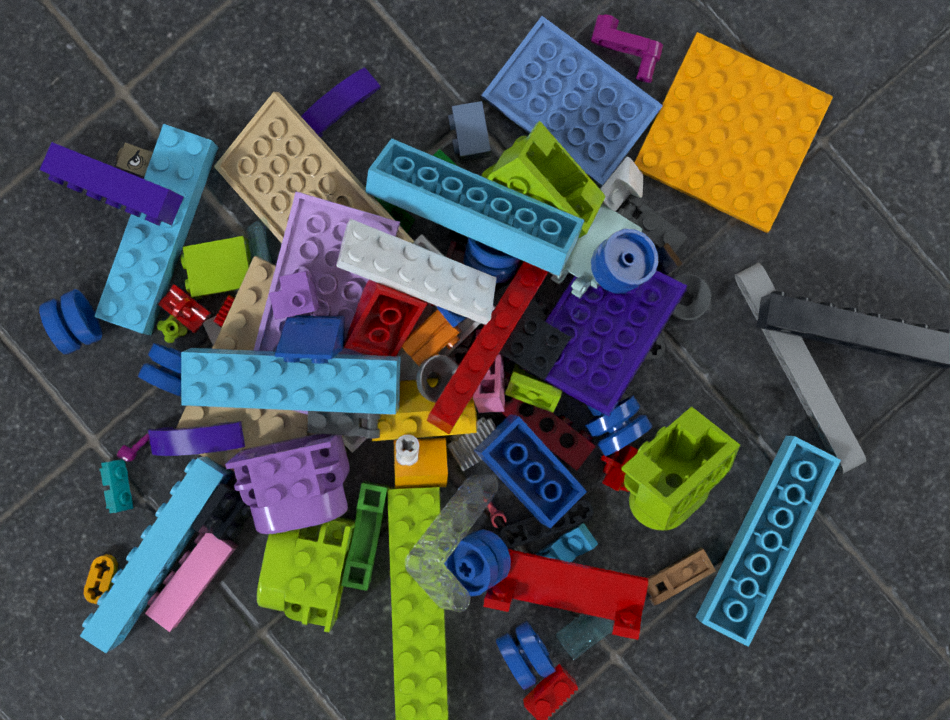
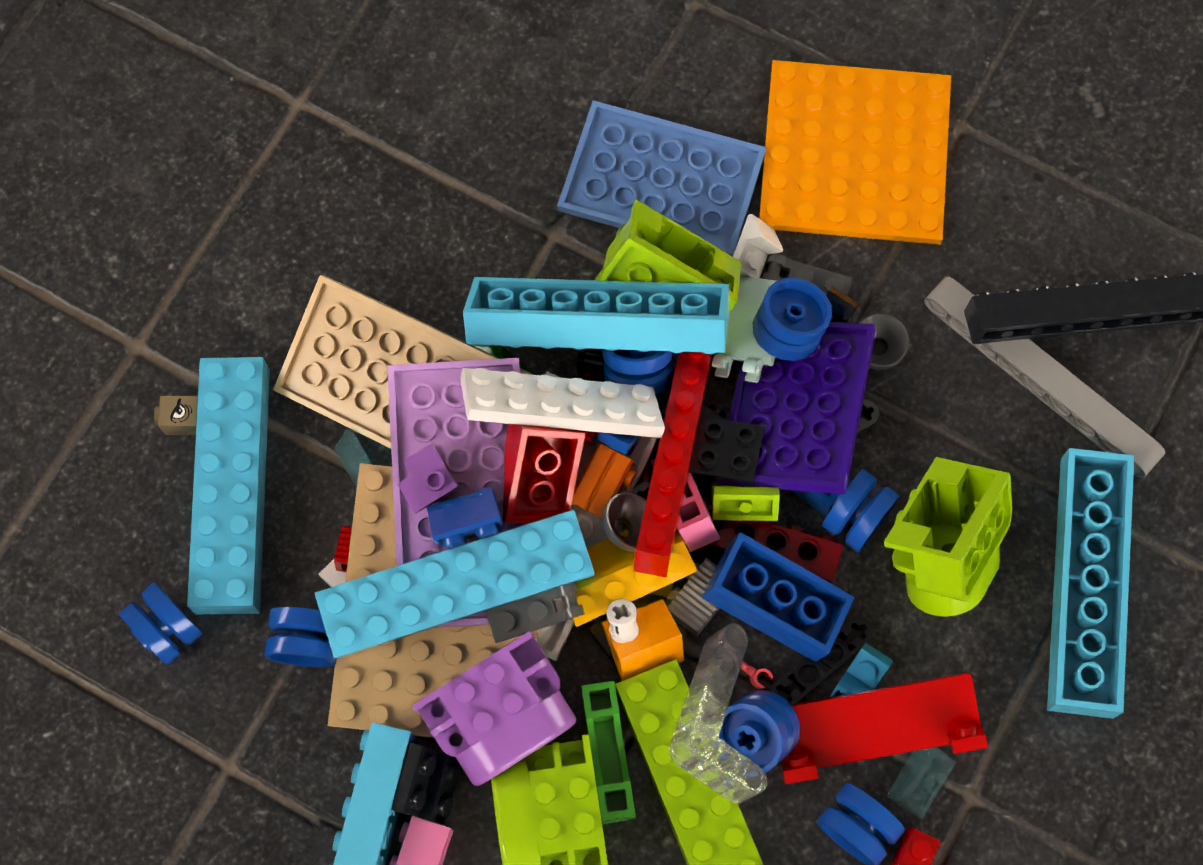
camera: 15 degrees left, 15 degrees down
(111, 183) = (161, 444): dark purple brick -> none
(116, 476) = (271, 796): teal hinge -> none
(128, 454) = (279, 764): magenta hand -> none
(170, 336) = (284, 583): lime plate -> none
(184, 308) = (293, 562): red hips -> none
(196, 439) = (358, 710): dark purple slope -> none
(216, 266) = (314, 499): lime panel -> none
(340, 100) = (398, 263): dark purple slope -> none
(471, 131) = (558, 248): sand blue brick -> none
(607, 36) = (678, 98): magenta beam -> none
(614, 475) = (879, 566): red hips -> none
(680, 576) = (1007, 666): medium nougat plate -> none

